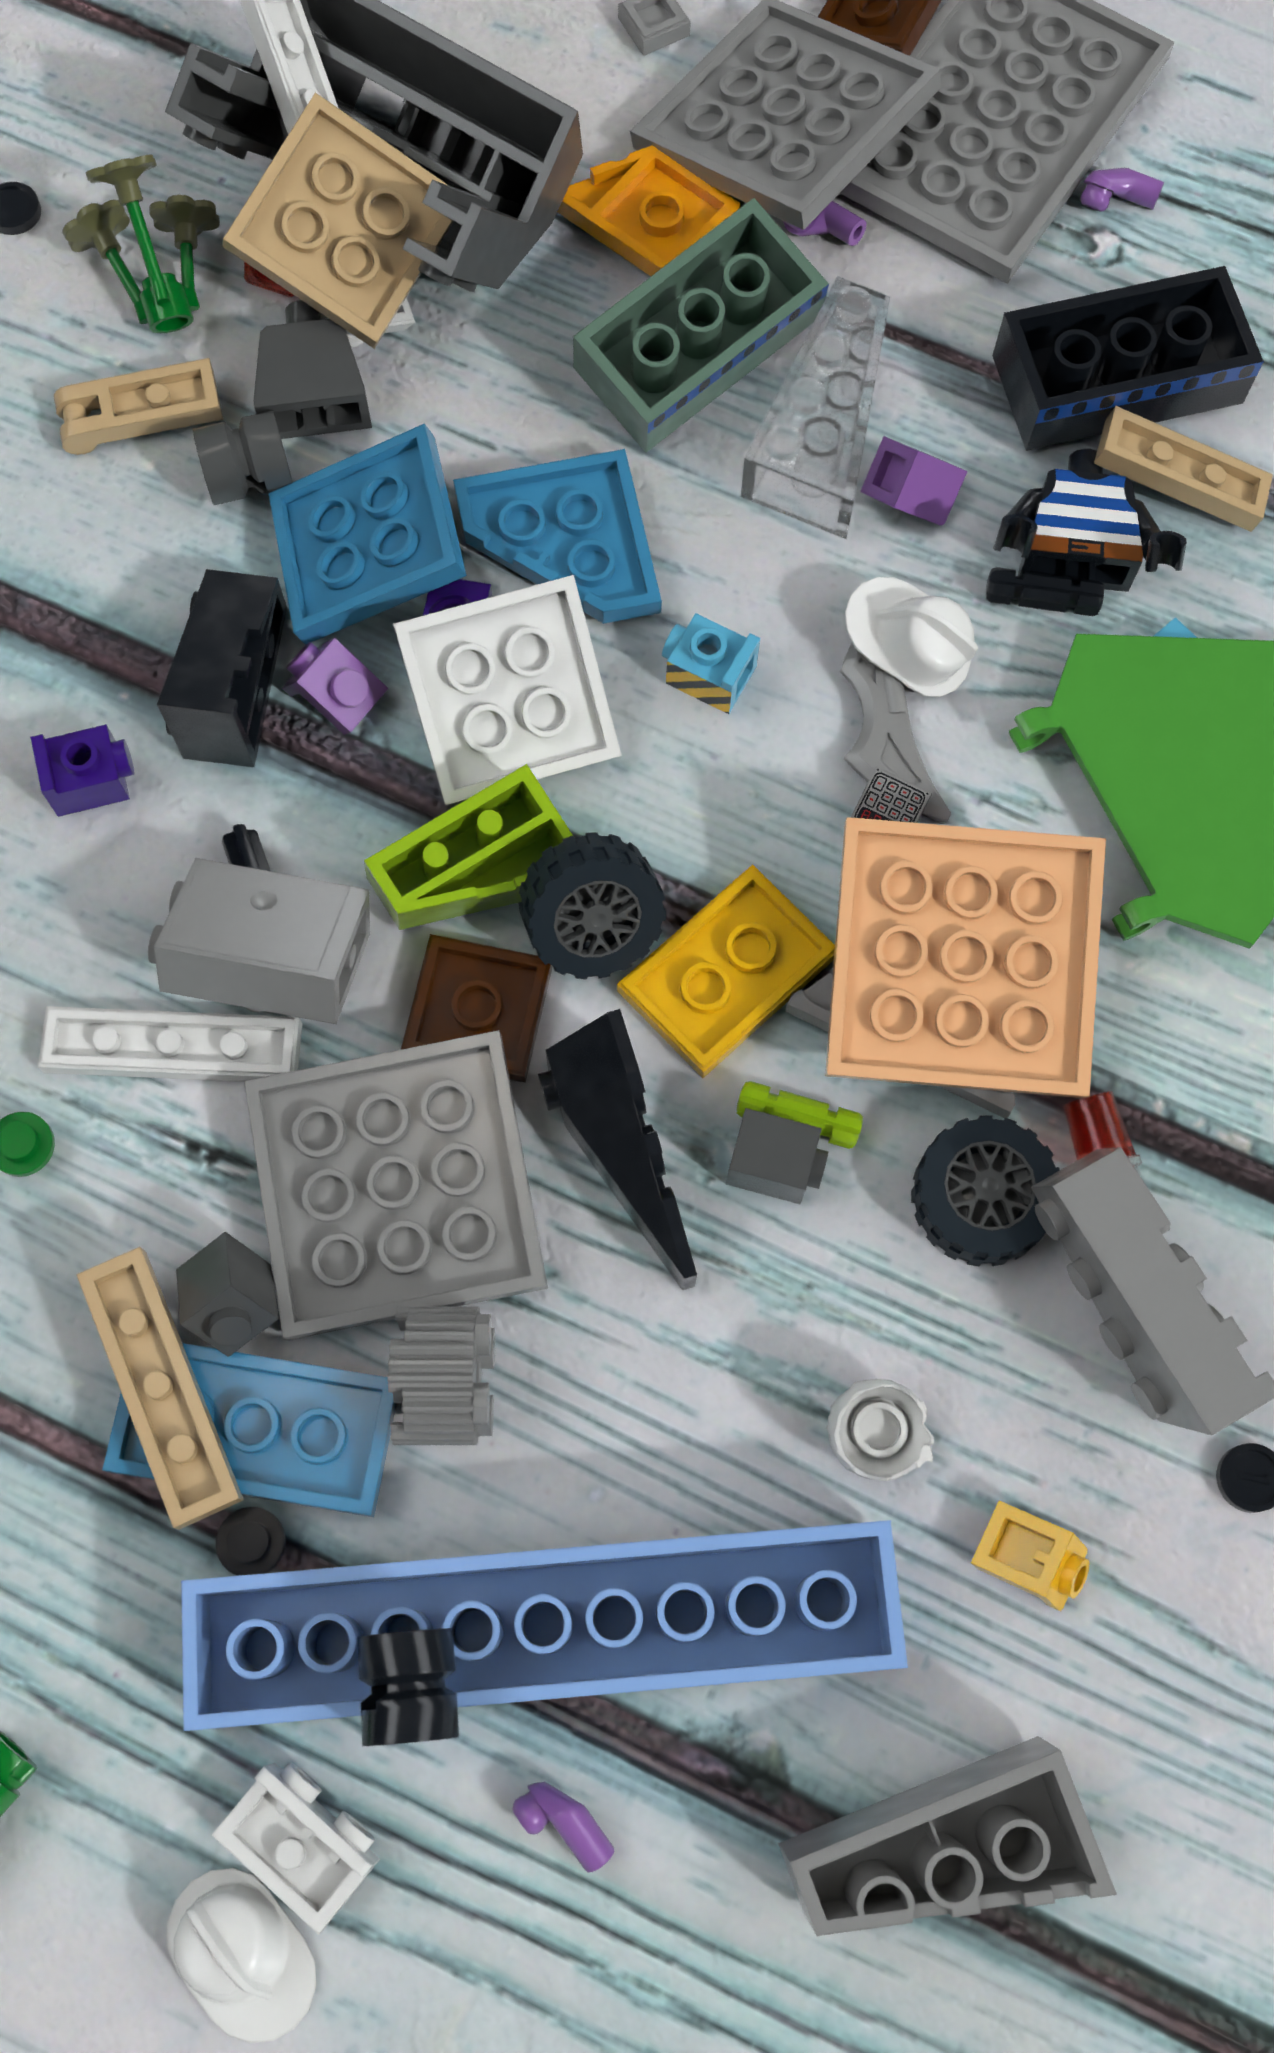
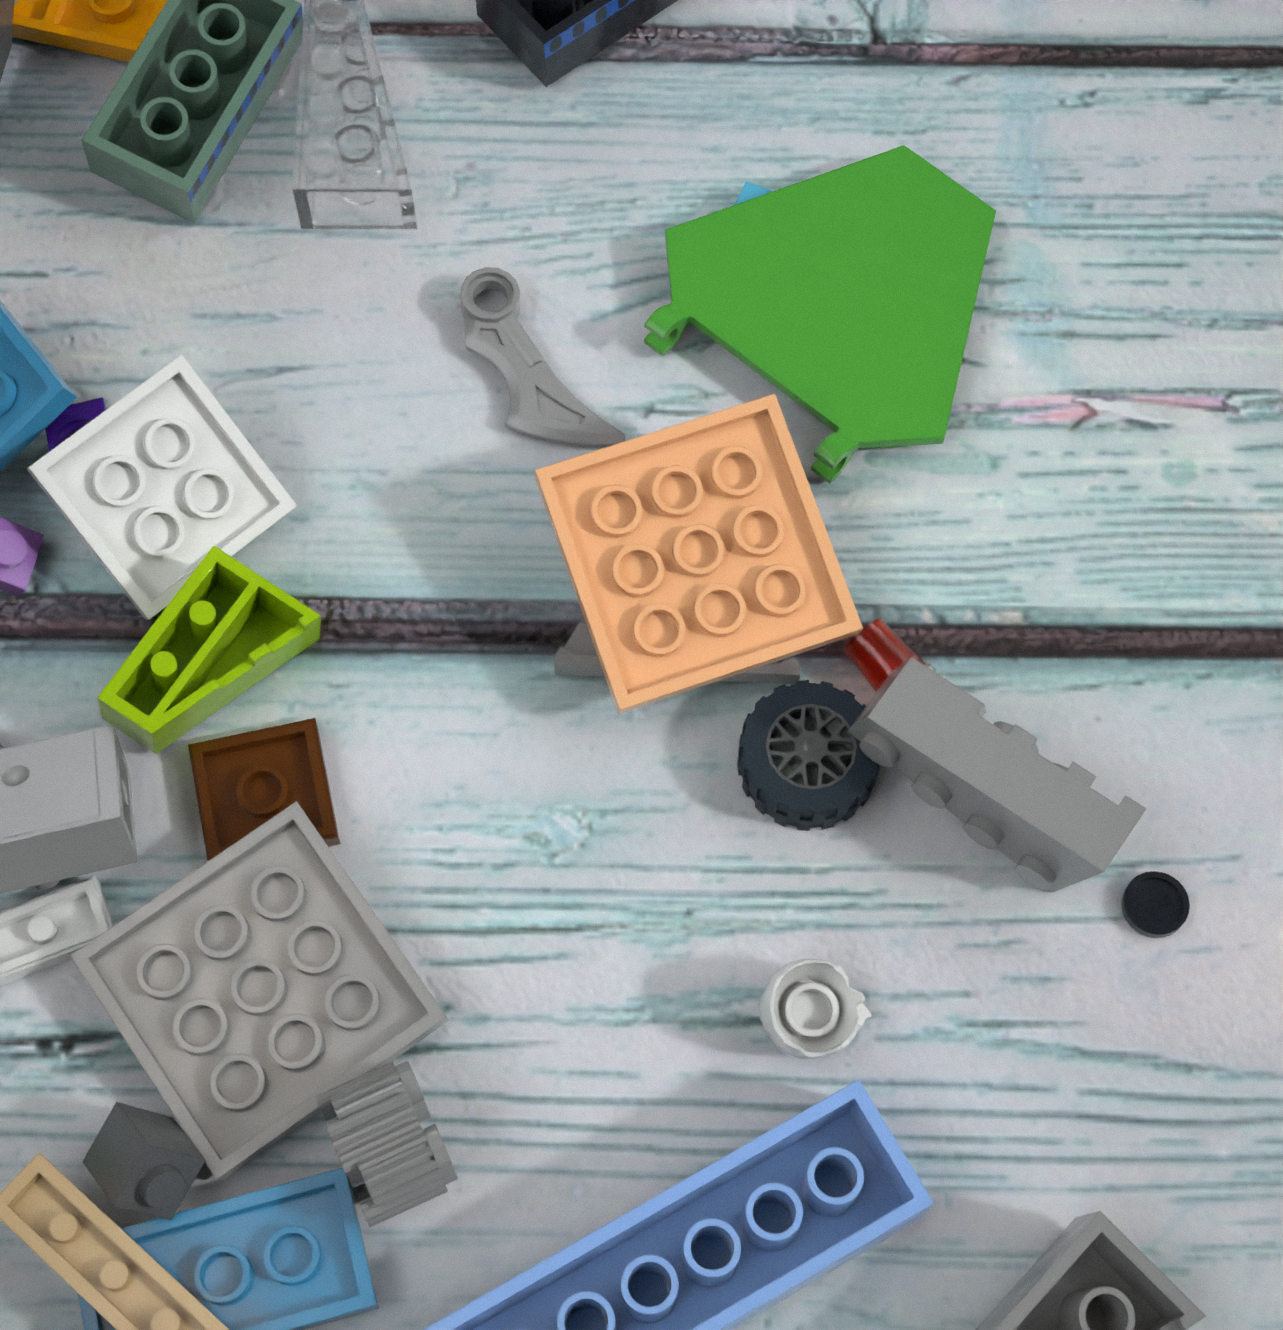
camera: 25 degrees left, 5 degrees down
(566, 522) = (147, 314): dark azure plate -> none
(603, 1107) = (422, 827): black wedge -> none
(609, 930) = (349, 676): black wheel -> none
(715, 676) = (341, 387): medium azure brick -> none
(727, 970) = (484, 661): yellow tile -> none
(776, 1157) = (606, 807): dark grey brick -> none
(840, 1126) = (610, 761): lime axle -> none
(891, 799) = (565, 439): tile -> none
(911, 635) = (517, 289): white piece -> none
(913, 481) = (456, 152): medium lavender panel -> none
(1032, 1555) = (997, 1058): yellow bracket -> none
(1044, 591) = (619, 204): black axle -> none
(1087, 528) = (633, 134): torso -> none
(1183, 469) = (694, 48): tan plate -> none

